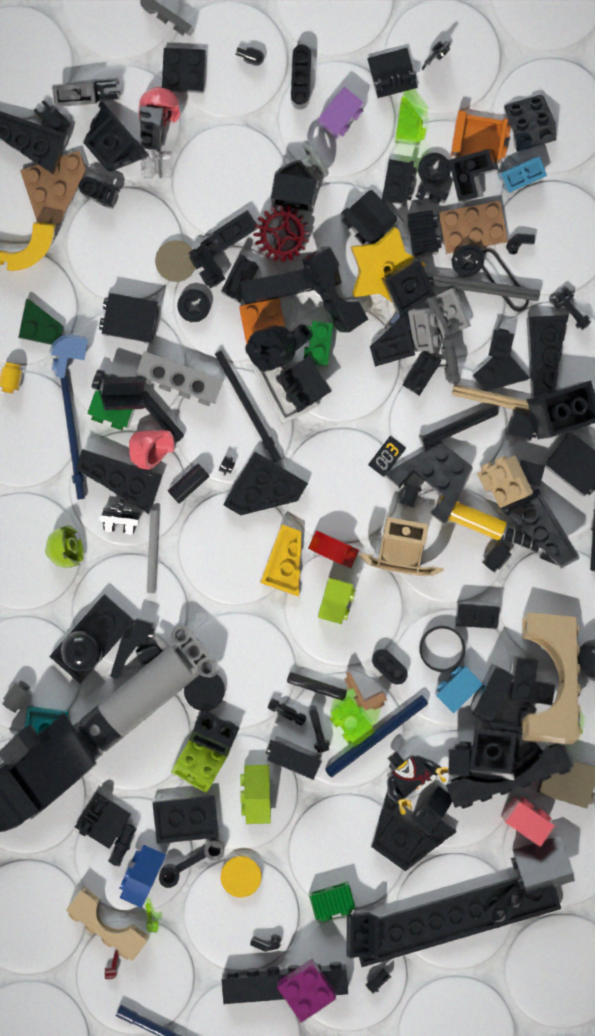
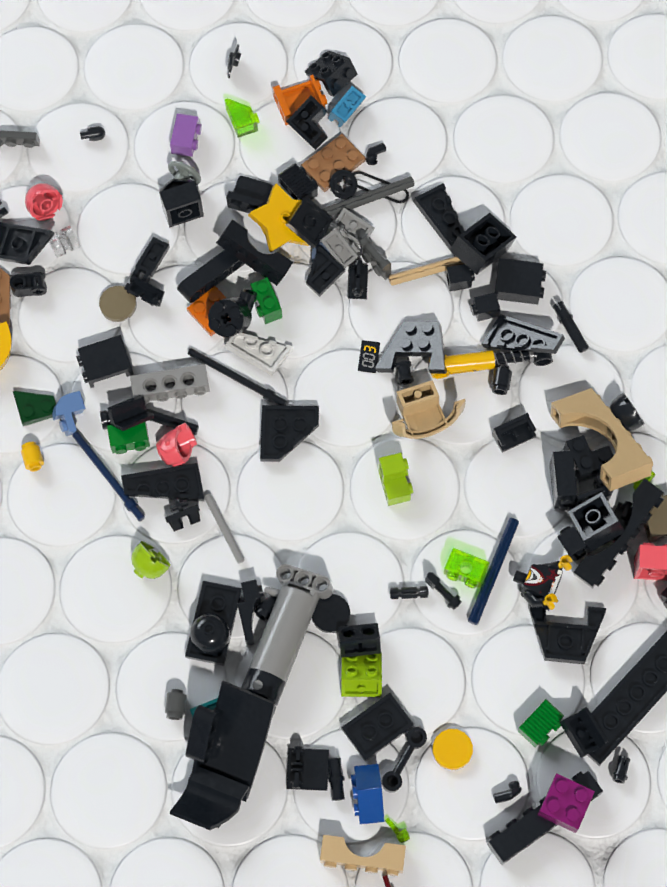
camera: 30 degrees left, 20 degrees down
(151, 127) = (44, 214): black hinge -> none
(183, 70) = (47, 168): black plate -> none
(188, 483) = (223, 458): black axle -> none
(193, 295) = (145, 321): black gear -> none
(226, 465) = (246, 429): black plate -> none
(242, 271) = (173, 297): black hinge -> none
(256, 795) = (425, 668): lime brick -> none
(279, 242) = (184, 246): dark red gear -> none
(284, 561) = (335, 477): yellow wing -> none
(293, 757) = (436, 620): black brick -> none
(300, 66) = (143, 134): black beam -> none
(304, 384) = (271, 332): black hinge -> none
(316, 686) = (420, 558): black axle -> none
(333, 549) = (367, 442): red brick -> none
(375, 701) = (474, 543): medium nougat bracket -> none
(389, 666) = (470, 507): black plate -> none
(392, 73) = (208, 92): black hinge -> none
(397, 182) = (257, 160): black bracket -> none
(433, 809) = (575, 602): black slope -> none
(435, 194) = (289, 153): black bracket -> none
(443, 166) = (285, 134): black gear -> none
(455, 665) = (503, 455): black tyre -> none
(458, 426) = (409, 304): black axle -> none
(458, 688) = (535, 495): dark azure brick -> none
(499, 373) = (418, 249): black wing -> none
(501, 344) = (405, 226): black bracket -> none
(505, 480) = (471, 319): tan plate -> none
(583, 321) = (432, 175): black hinge -> none

